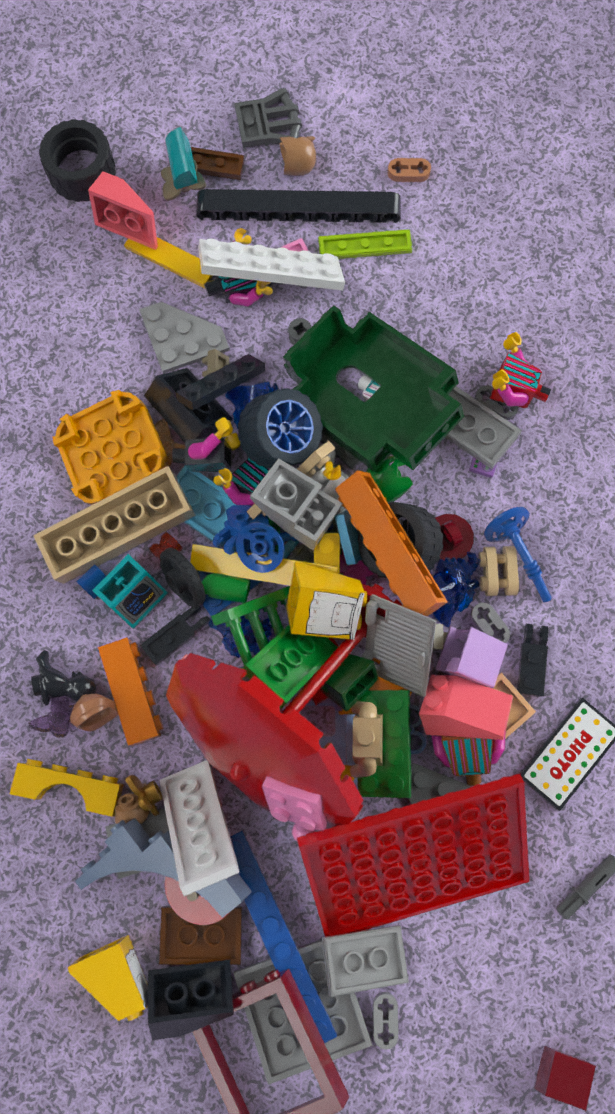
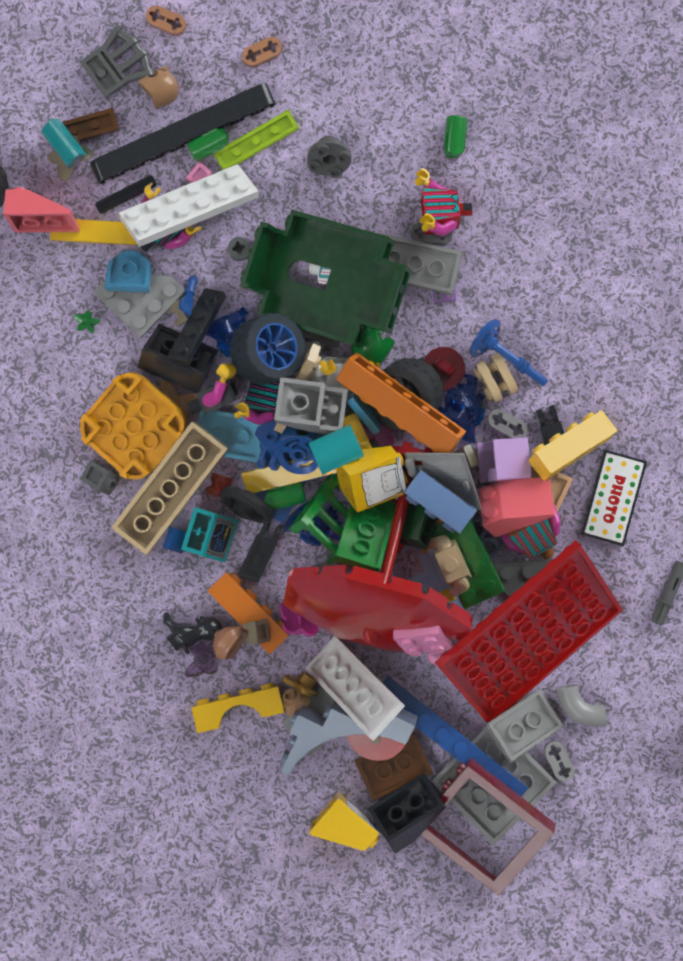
camera: 20 degrees left, 10 degrees up
(52, 486) = (99, 478): none -> dark grey bracket
(118, 333) = (86, 321): none -> green plant
(127, 714) = (257, 631): none -> dark tan tile
(172, 727) = (296, 624): none -> dark pink animal
(182, 306) = (128, 273): none -> dark azure tile
(193, 237) = (124, 194): none -> black axle
(223, 356) = (186, 302): none -> blue piece
(300, 556) = (336, 449): none -> teal brick
(318, 224) = (208, 144): none -> green arm
(335, 103) = (167, 16): none -> nougat beam
(384, 663) = (439, 502): none -> medium blue wedge
(428, 285) = (329, 157): none -> dark grey plate
(433, 972) = (580, 710): none -> light grey cylinder
(551, 674) = (572, 445): none -> yellow brick
(561, 322) = (455, 135): none -> green arm

